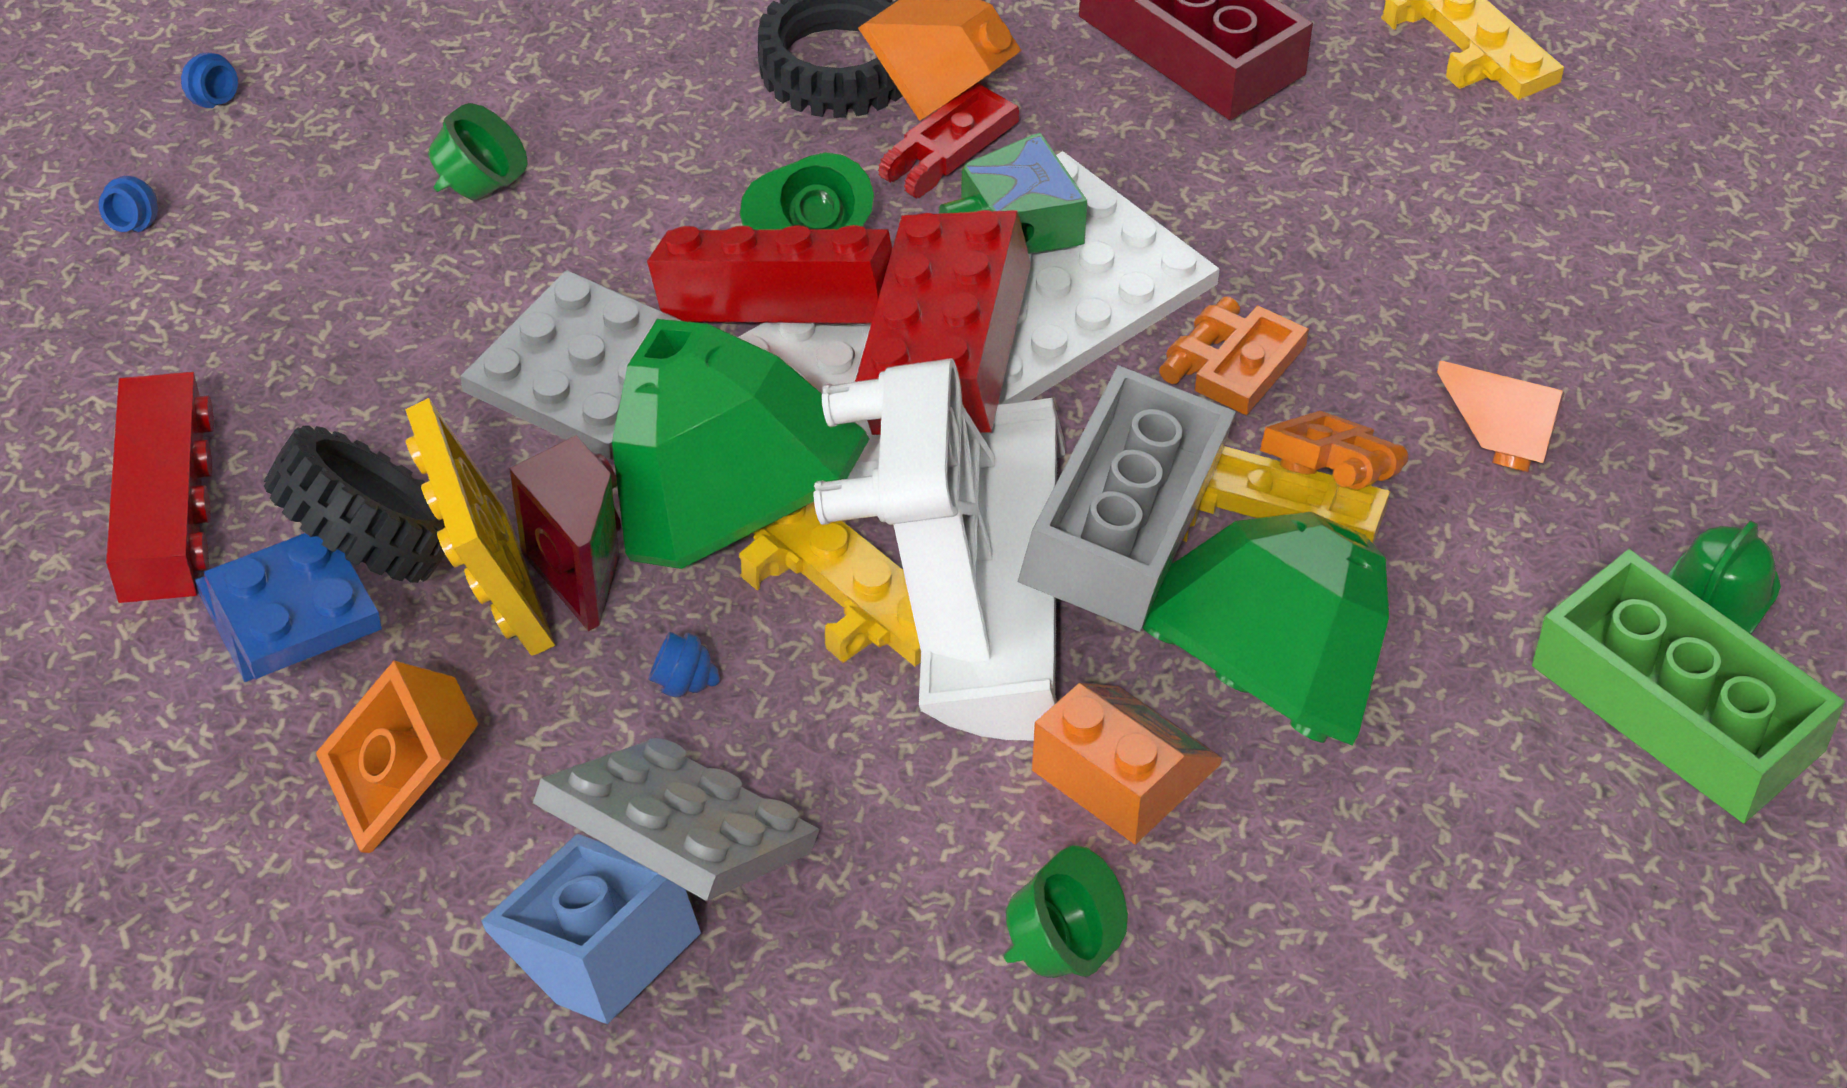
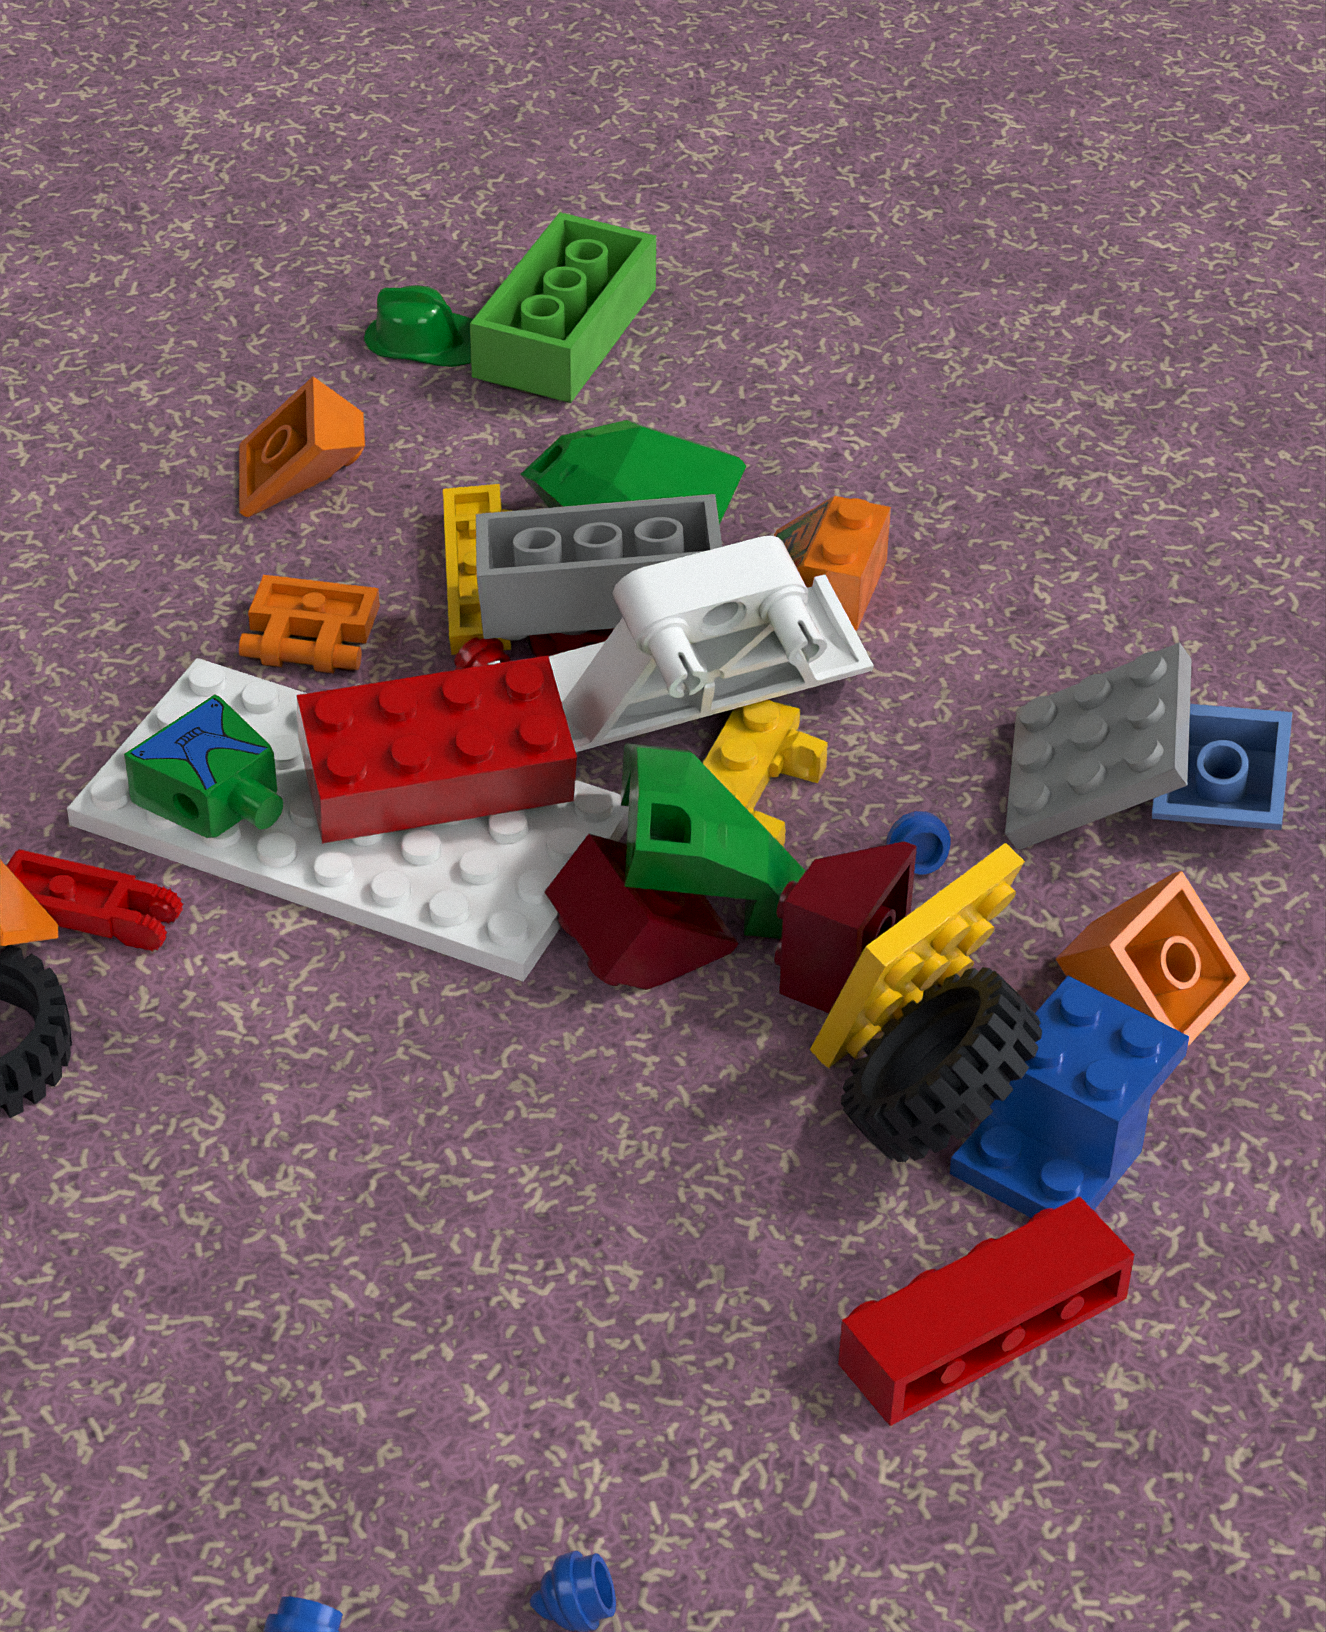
camera: 115 degrees left, 5 degrees down
(476, 152) = (335, 1277): green piece -> none
(565, 360) = (579, 1066): light grey plate -> none
(770, 274) = (423, 907): red brick -> none
(811, 193) = (275, 944): green piece -> none
(1067, 916) = (1017, 554): green piece -> none
(1334, 443) = (418, 520): orange plate -> none

